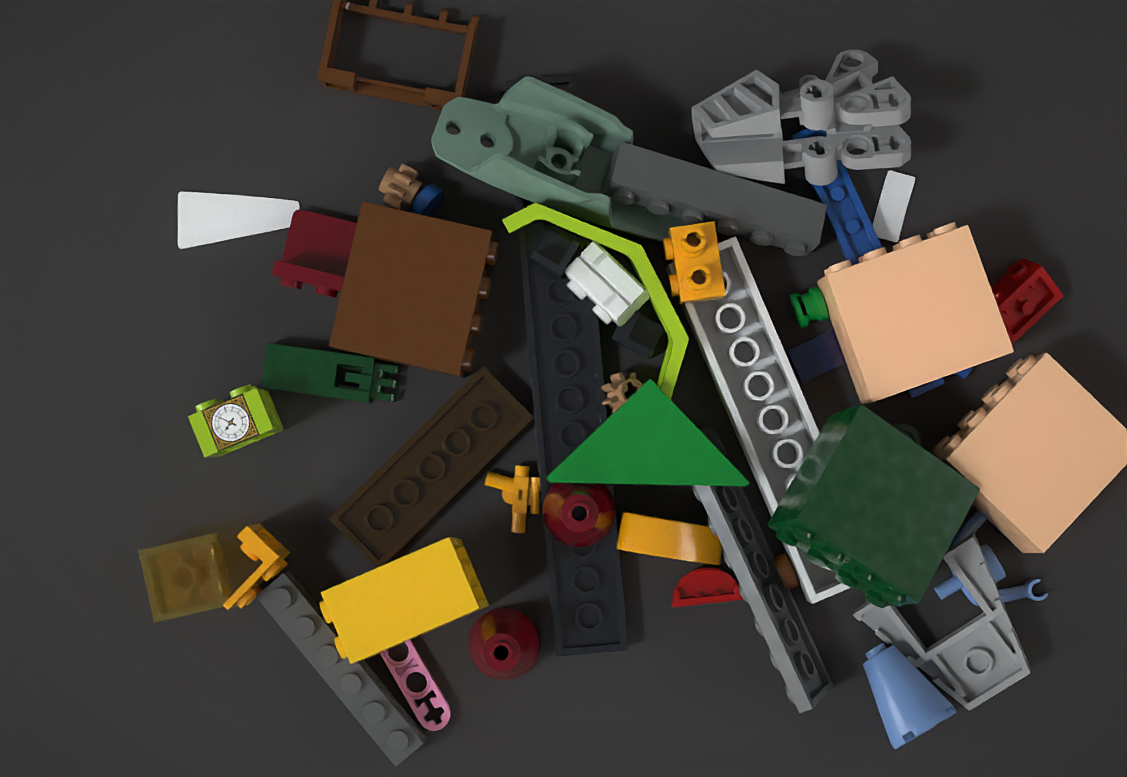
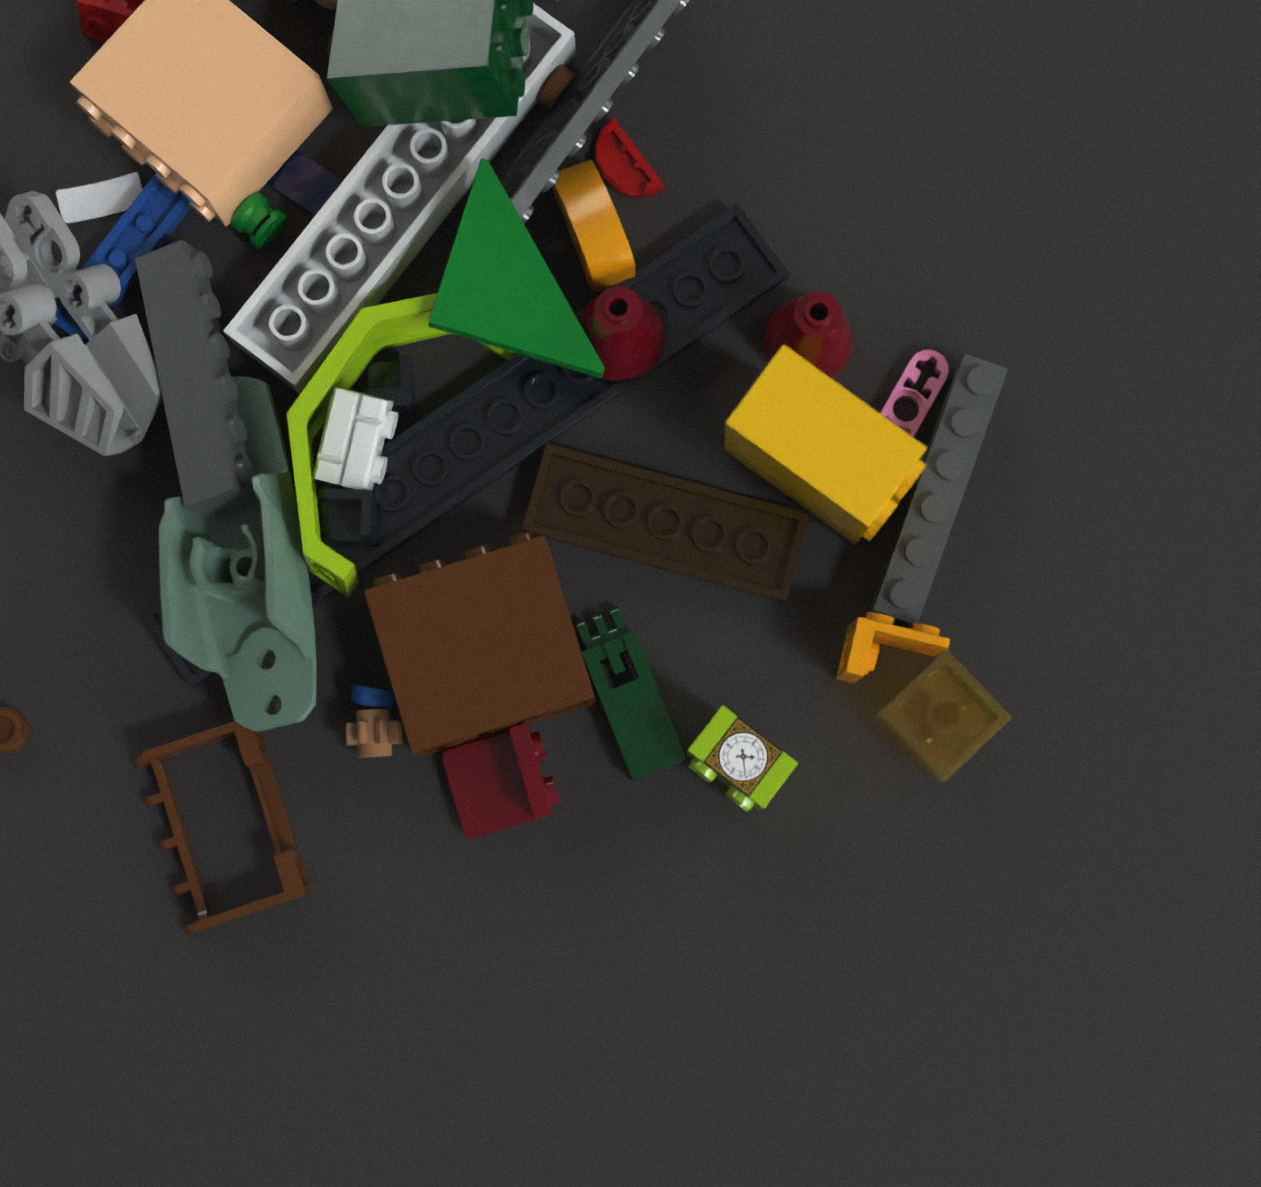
camera: 125 degrees left, 5 degrees down
(221, 217) = (521, 917): white sticker -> none
(518, 491) = (637, 415): light orange piece -> none
(620, 389) = (464, 361): medium nougat gear -> none
(695, 263) = (275, 351): light orange brick -> none

